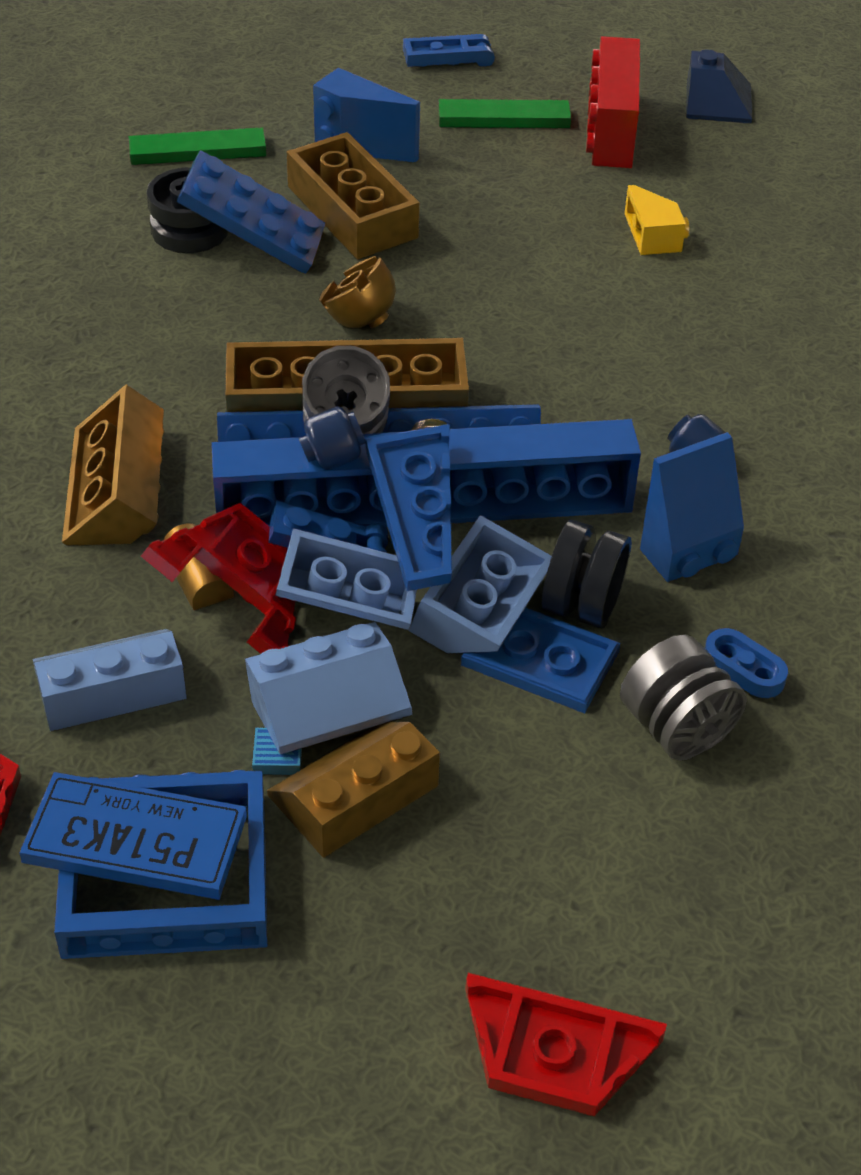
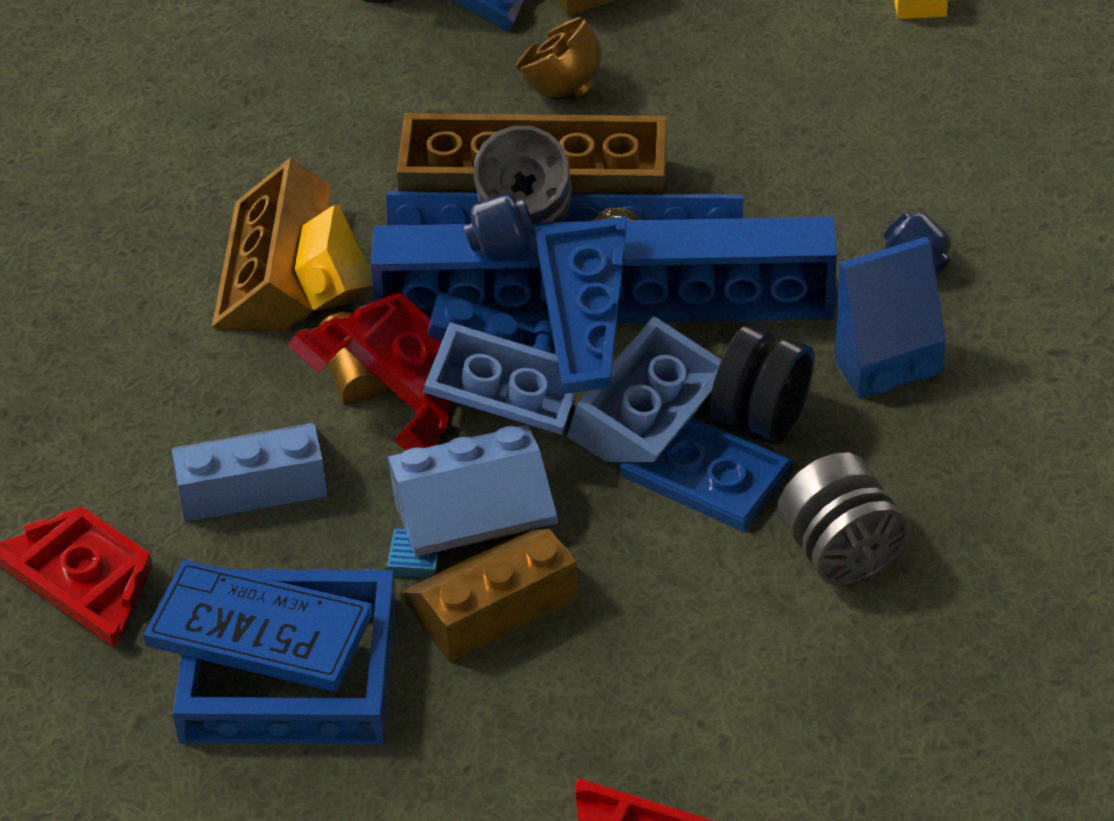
camera: 10 degrees right, 0 degrees up
(171, 477) = (331, 261): none -> yellow slope
(747, 663) = (928, 487): blue plate -> none

